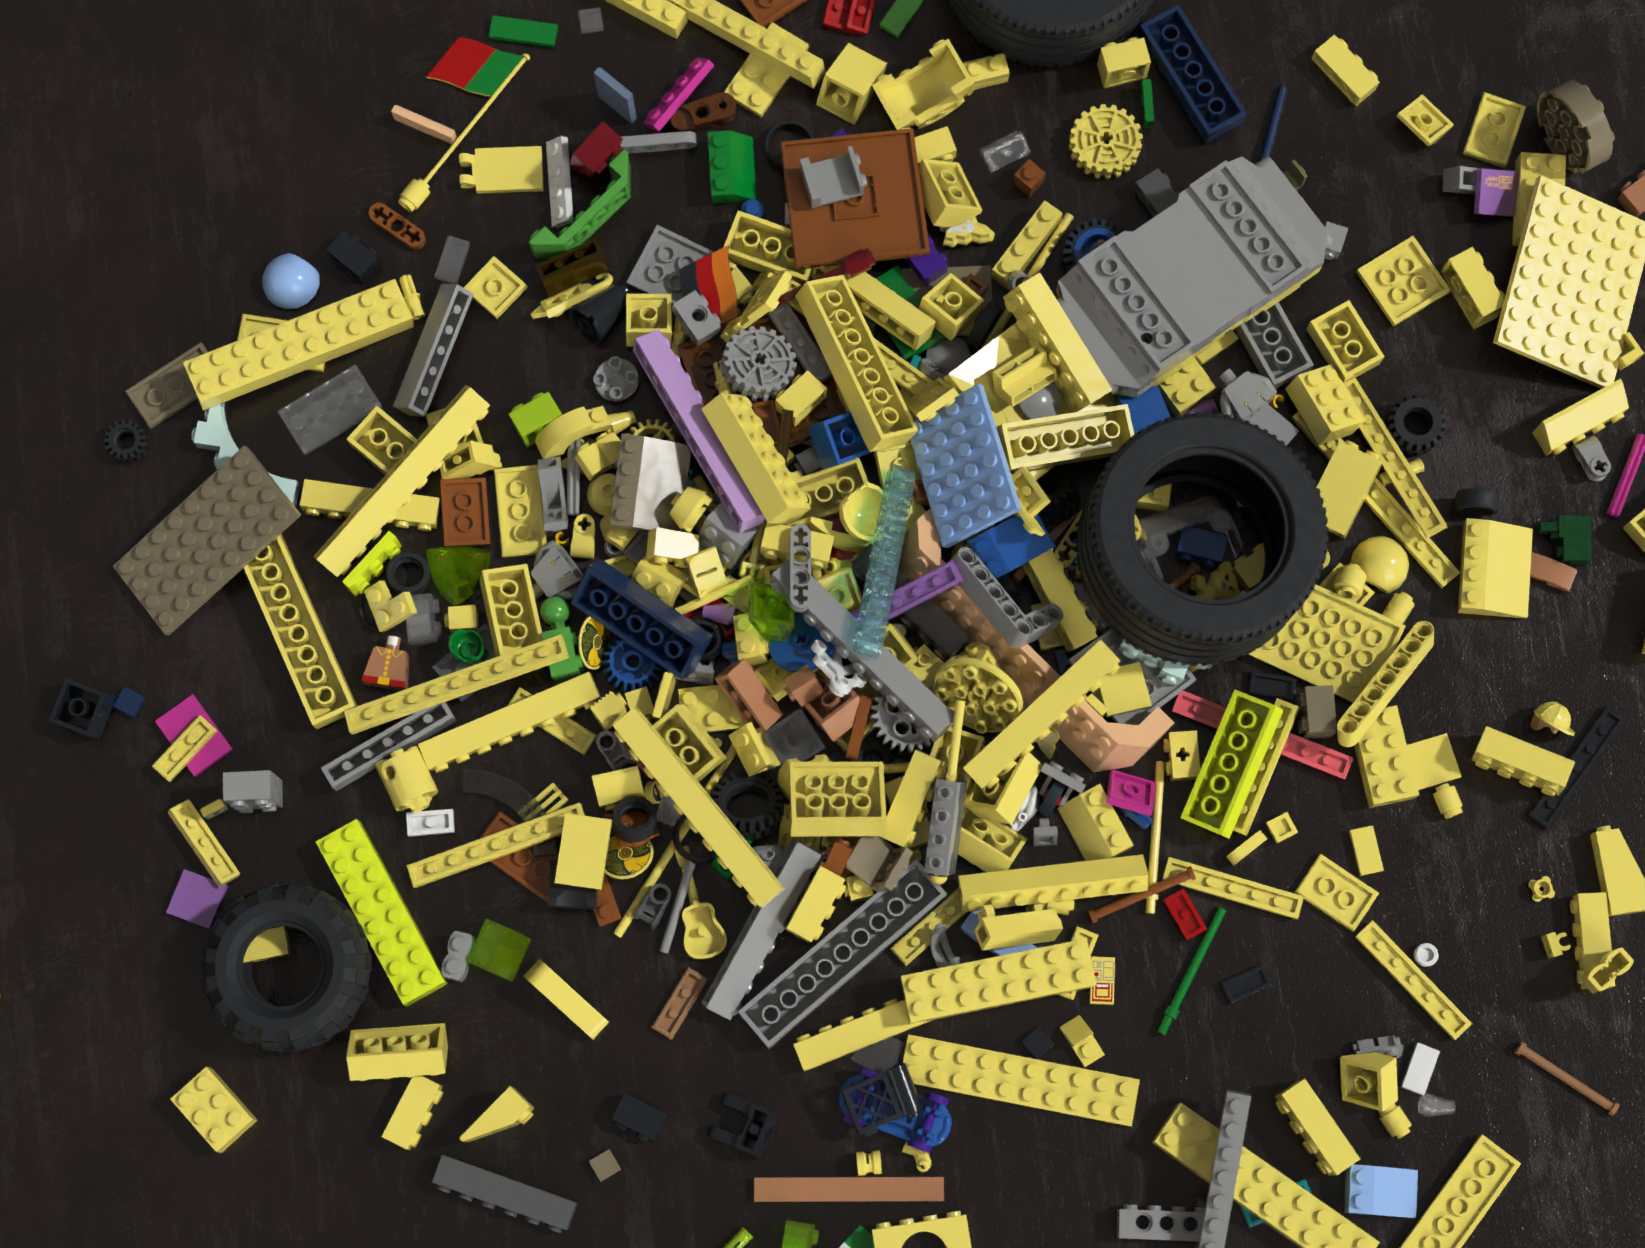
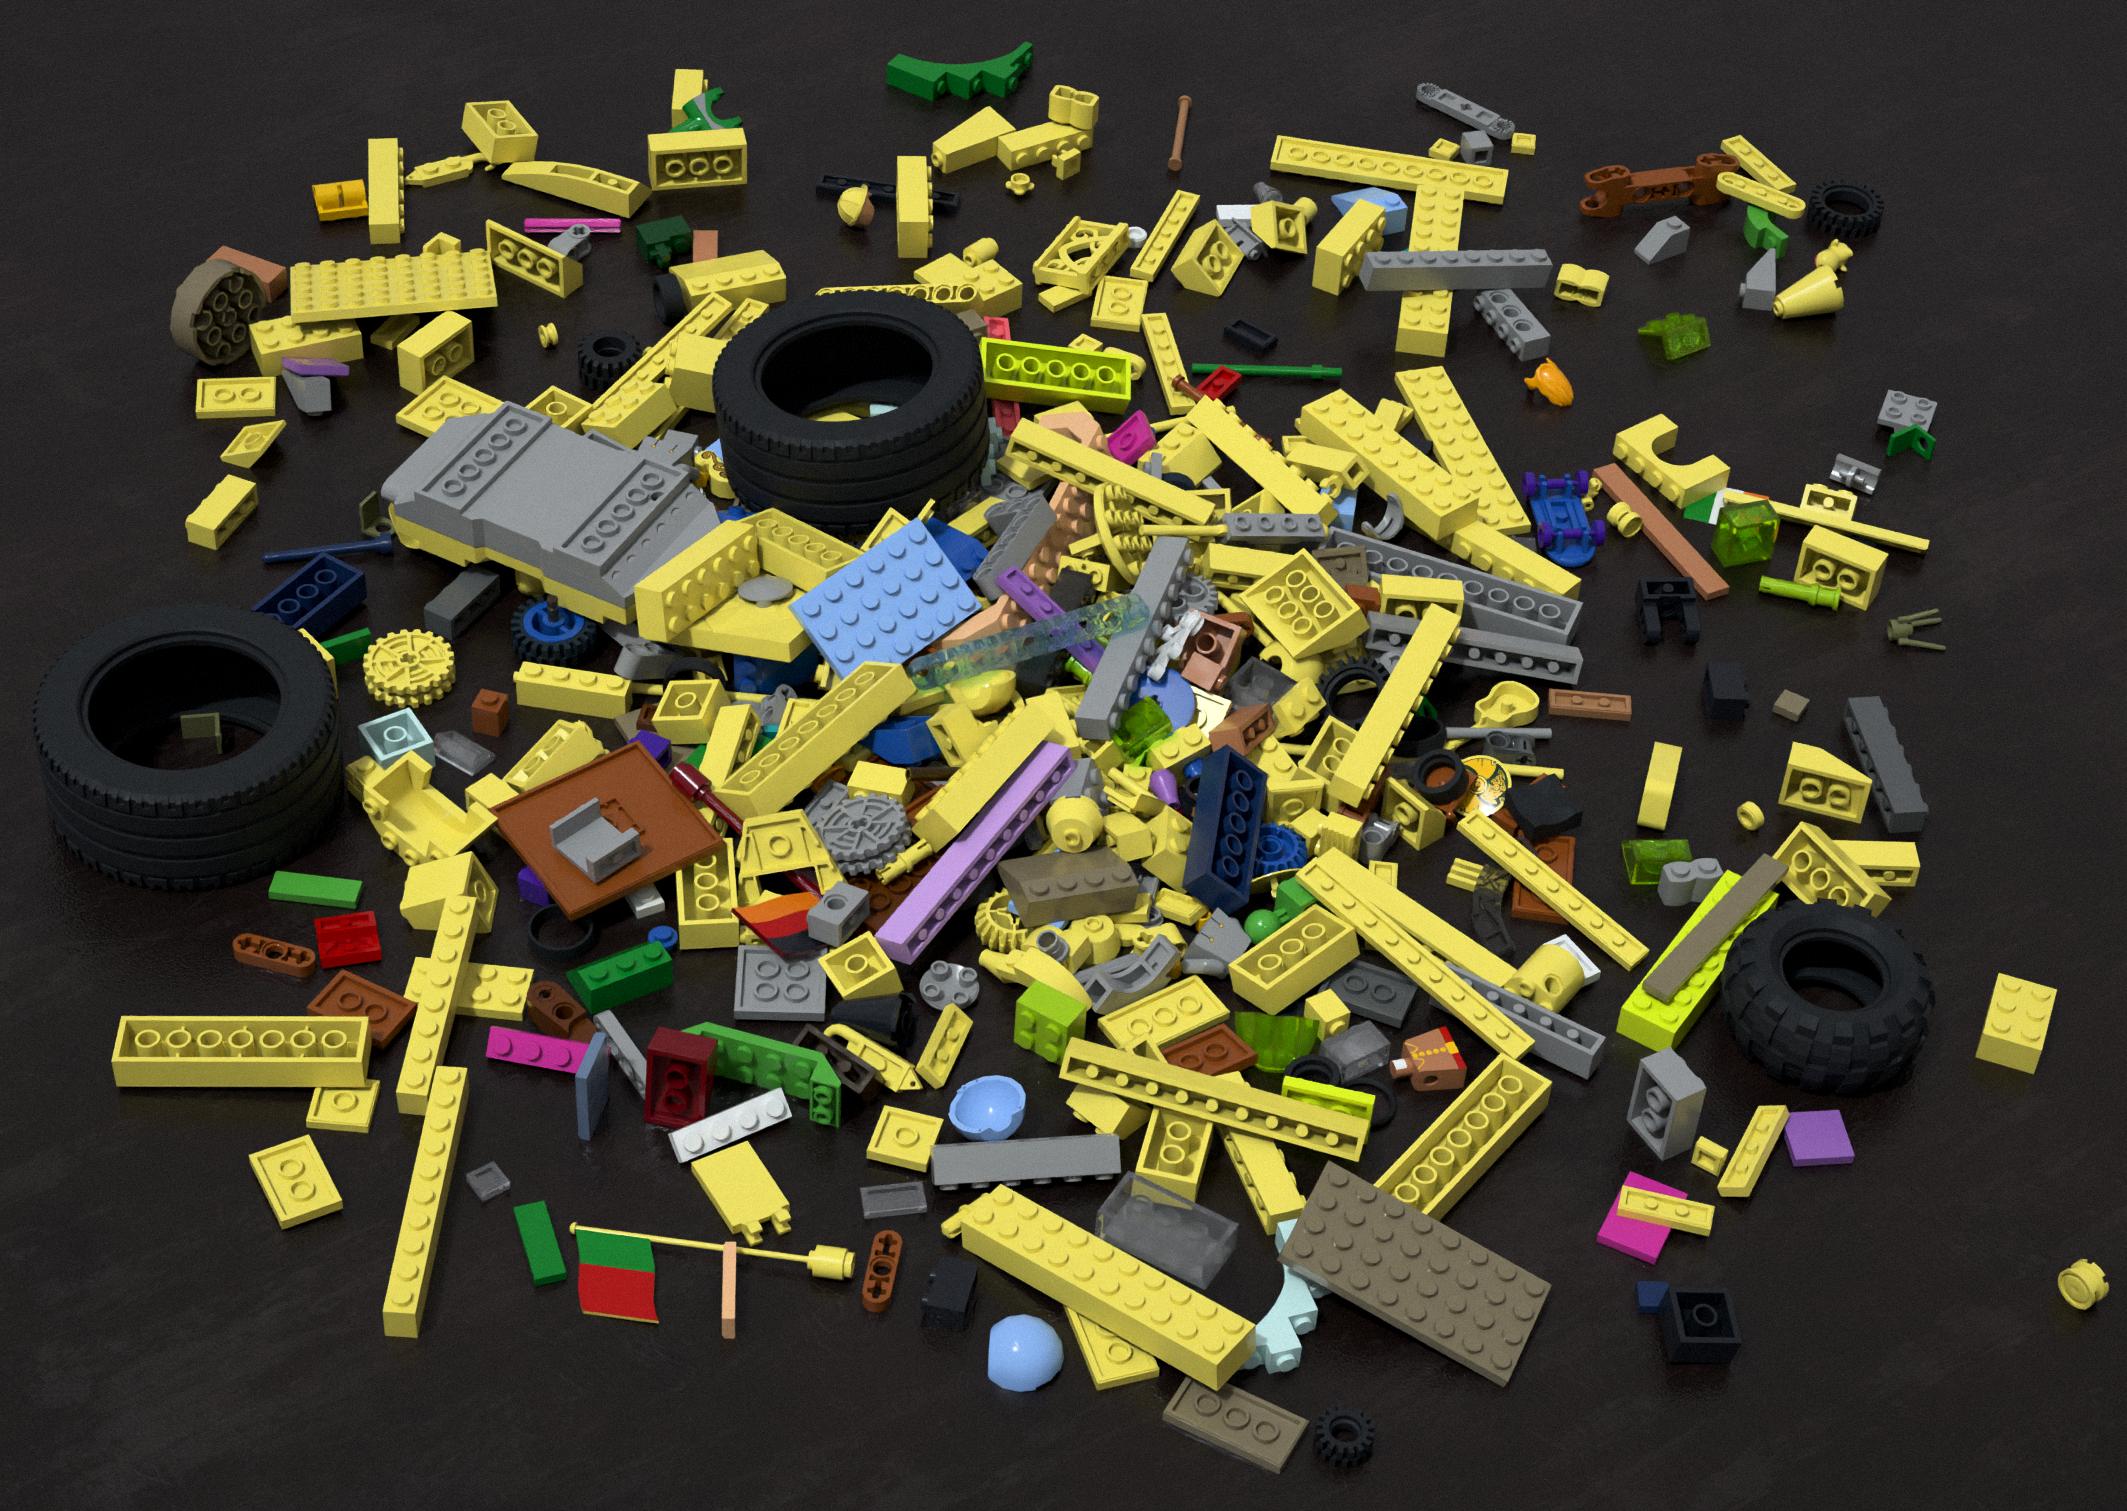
camera: 120 degrees left, 35 degrees down
(387, 929) = (1715, 928): none -> dark tan tile
(388, 611) = (1366, 1068): light yellow plate -> none
(466, 646) = (1360, 984): green hair -> none
(483, 342) = (988, 1108): none -> light blue cylinder
(502, 1048) = (1750, 816): none -> light yellow tile
(561, 348) = (944, 1046): none -> light yellow plate
(583, 851) = (1507, 795): light yellow tile -> none
(586, 440) = (1060, 948): none -> light grey piece
(800, 568) = (1120, 682): light grey beam -> none
(815, 471) = (958, 732): none -> light yellow hinge
(901, 1096) = (1551, 501): black piece -> none
(931, 399) = (821, 659): light yellow plate -> none
(1018, 99) = (394, 736): none -> light aqua brick
(1023, 376) = (753, 591): light yellow piece -> none
(1065, 1206) = (1552, 384): none -> light orange piece
(1358, 997) = (1208, 260): none -> light yellow slope
(1419, 867) = (1084, 274): none -> light yellow fence
(1475, 393) = (548, 335): none -> light yellow bush

